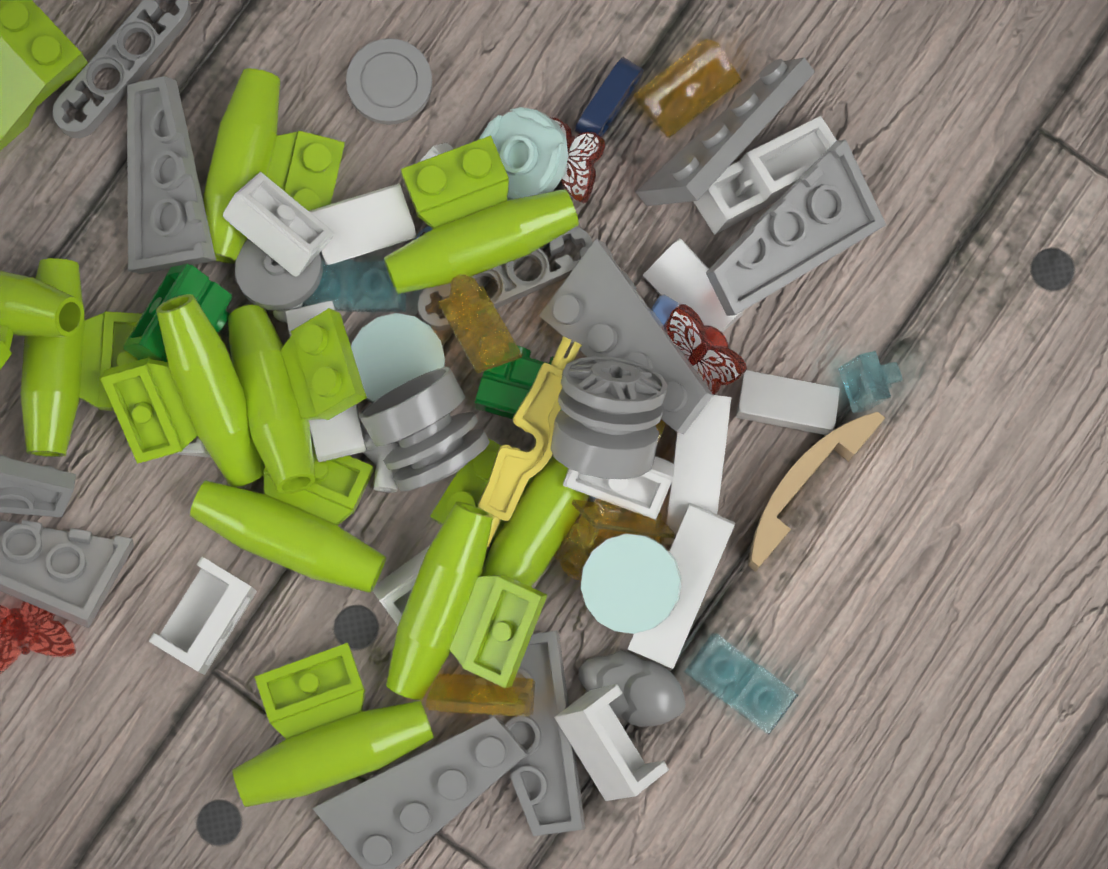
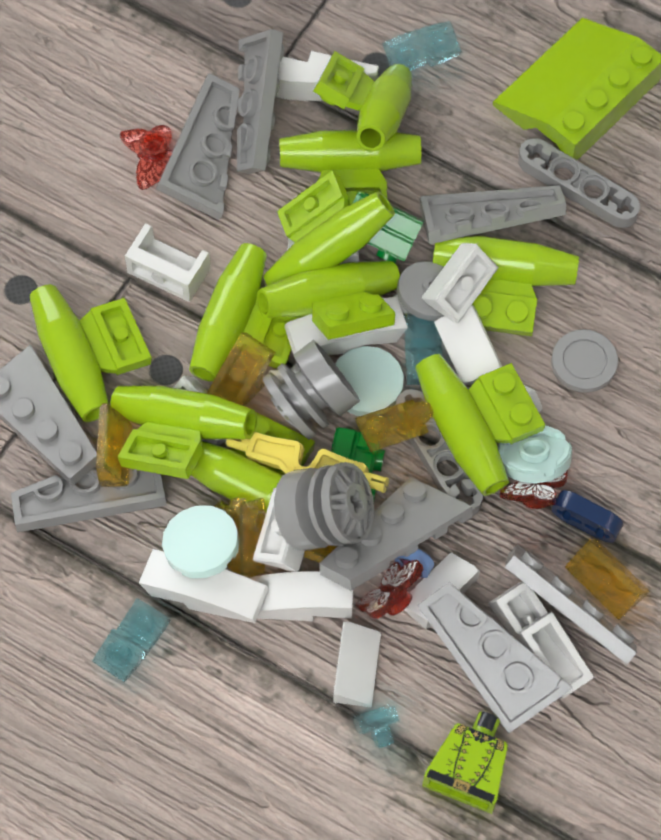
camera: 85 degrees right, 15 degrees down
(385, 523) = (242, 371): none -> clear yellow slope
(606, 746) = (78, 538): white panel -> none
(648, 689) = (123, 561): light grey arm -> none
(846, 442) = (251, 651): tan slope -> none
(925, 272) = (469, 764): none -> lime torso

